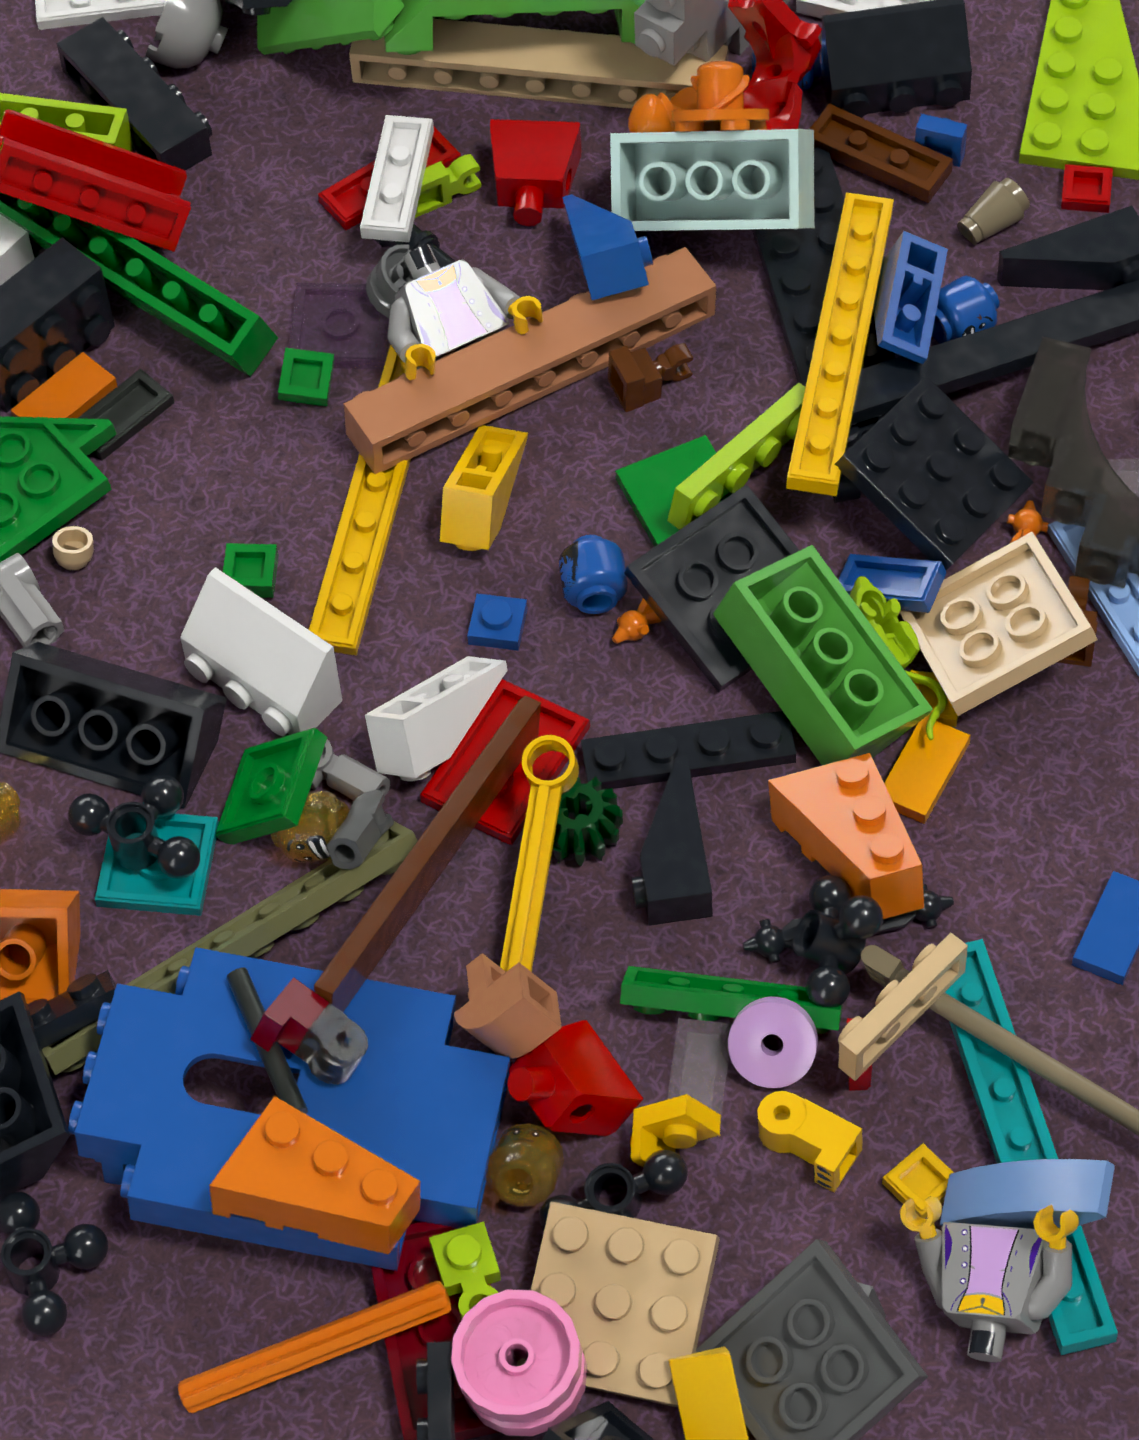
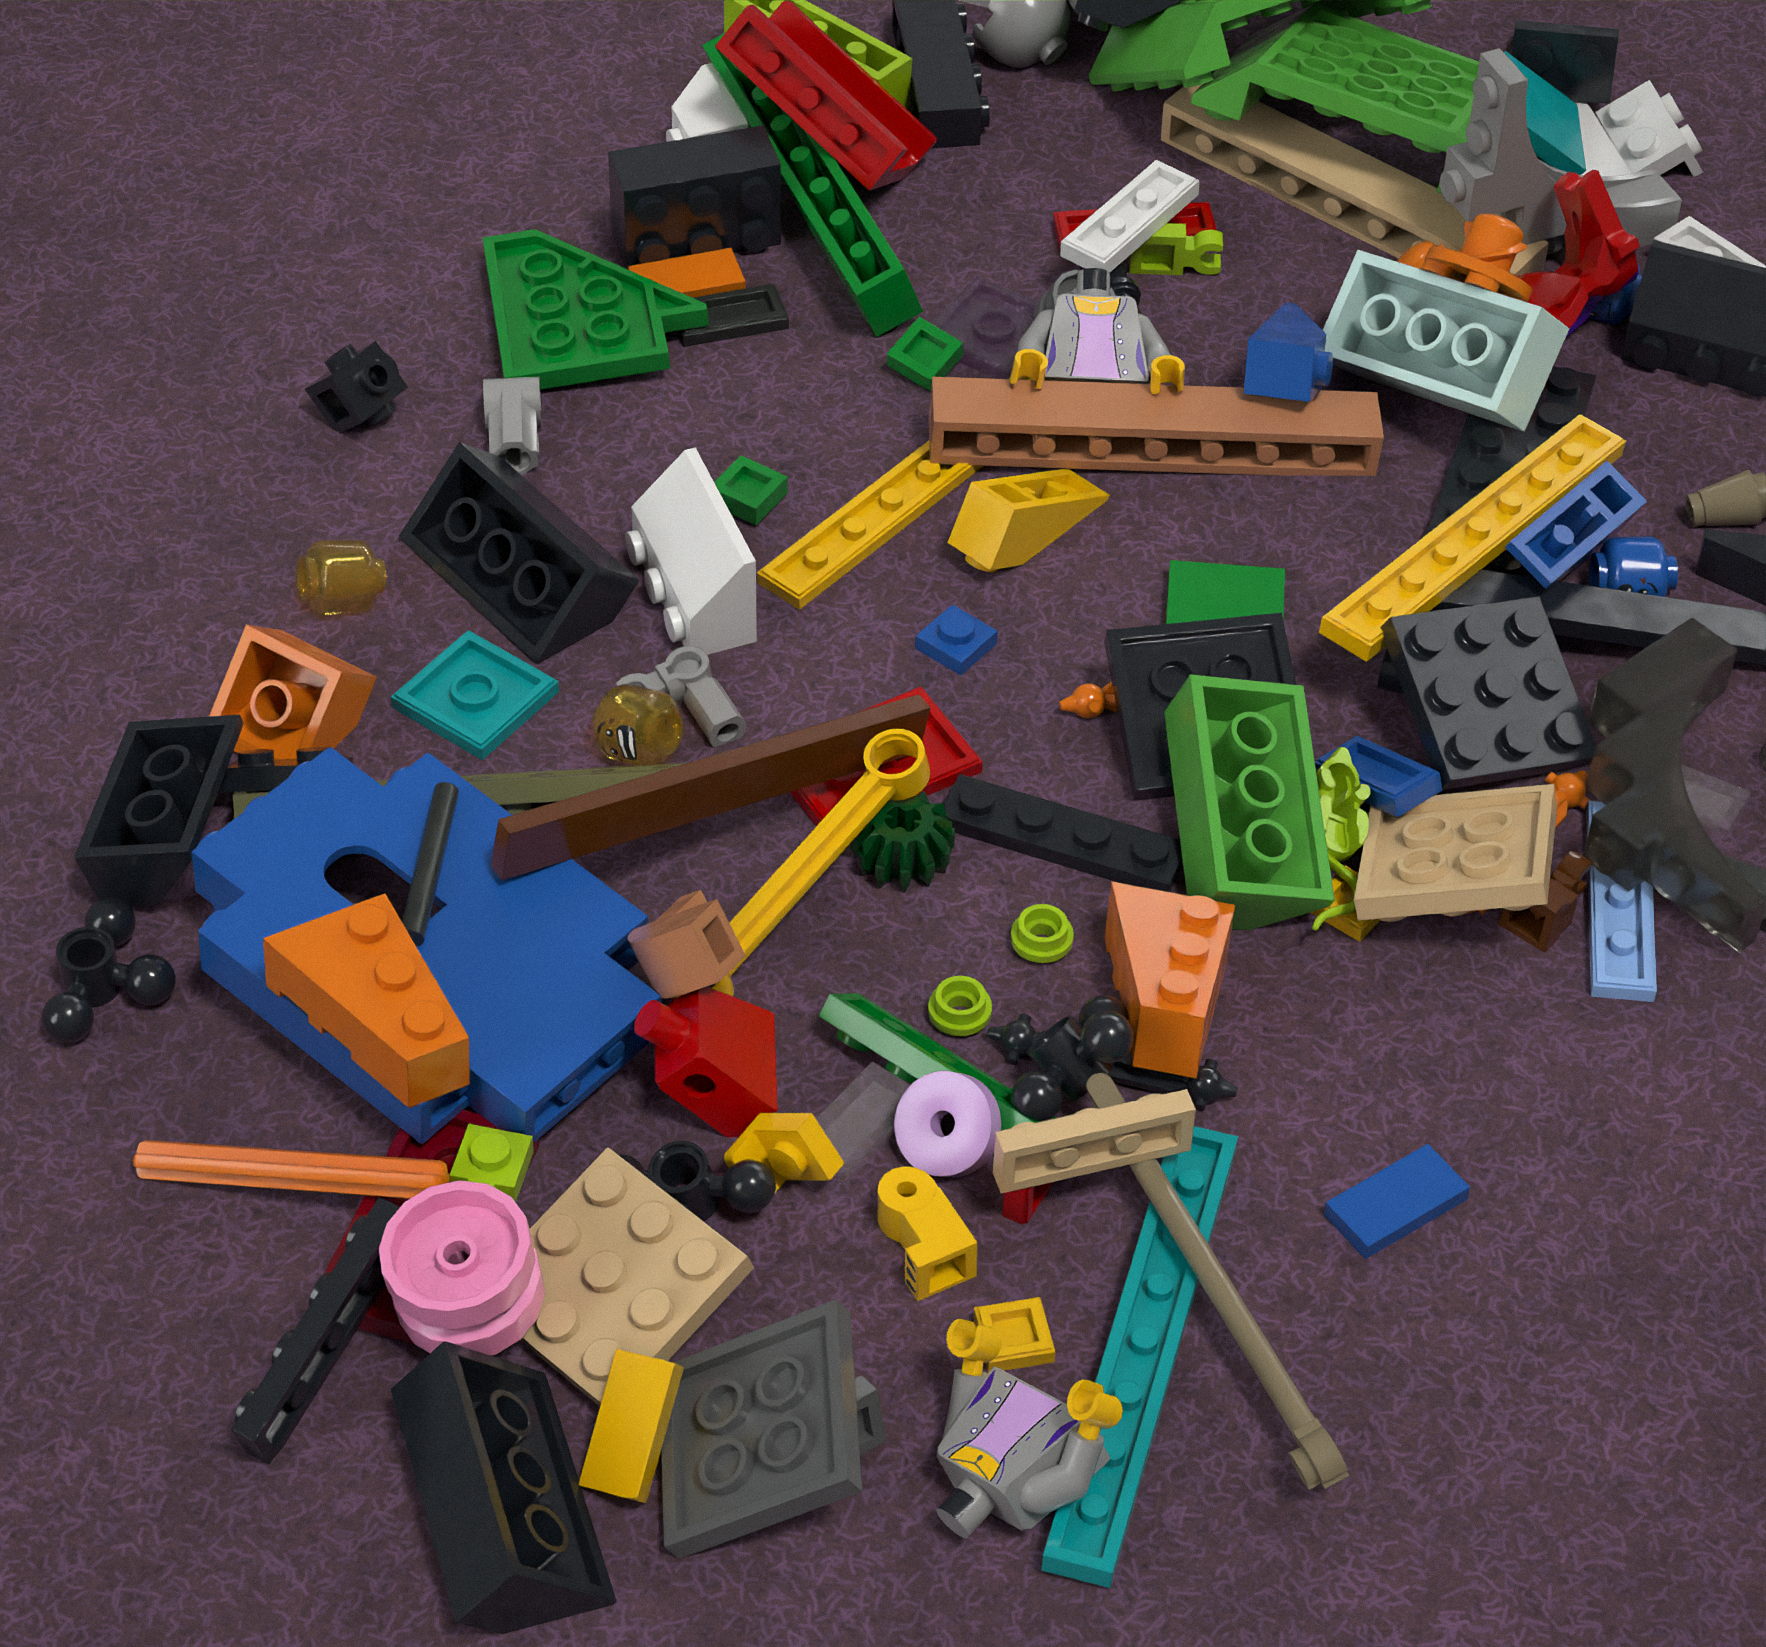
camera: 25 degrees right, 10 degrees down
(73, 547) = (597, 400): tan hinge -> none
(160, 798) = (463, 644): black piece -> none
(271, 786) = (622, 670): green tile -> none
(313, 1033) = (473, 865): leg -> none
(360, 830) = (673, 744): dark grey bar -> none
(431, 718) = (812, 685): white slope -> none
(525, 1165) = (616, 1111): clear yellow head -> none
(534, 165) = (1282, 265): red torso -> none
(593, 574) = (1074, 634): blue head -> none
(639, 379) = (1252, 489): reddish brown piece -> none
(673, 857) = (975, 910): black slope -> none
(710, 923) = (960, 992): none -> lime plate
(730, 830) = (1042, 920): none -> lime plate
(735, 462) = (1298, 592): lime plate -> none
(881, 153) = (1647, 404): reddish brown plate -> none
(925, 769) = (1293, 962): light orange tile -> none
(942, 136) = (1718, 415): blue plate -> none
(1017, 1190) = (1140, 1380): medium blue slope -> none

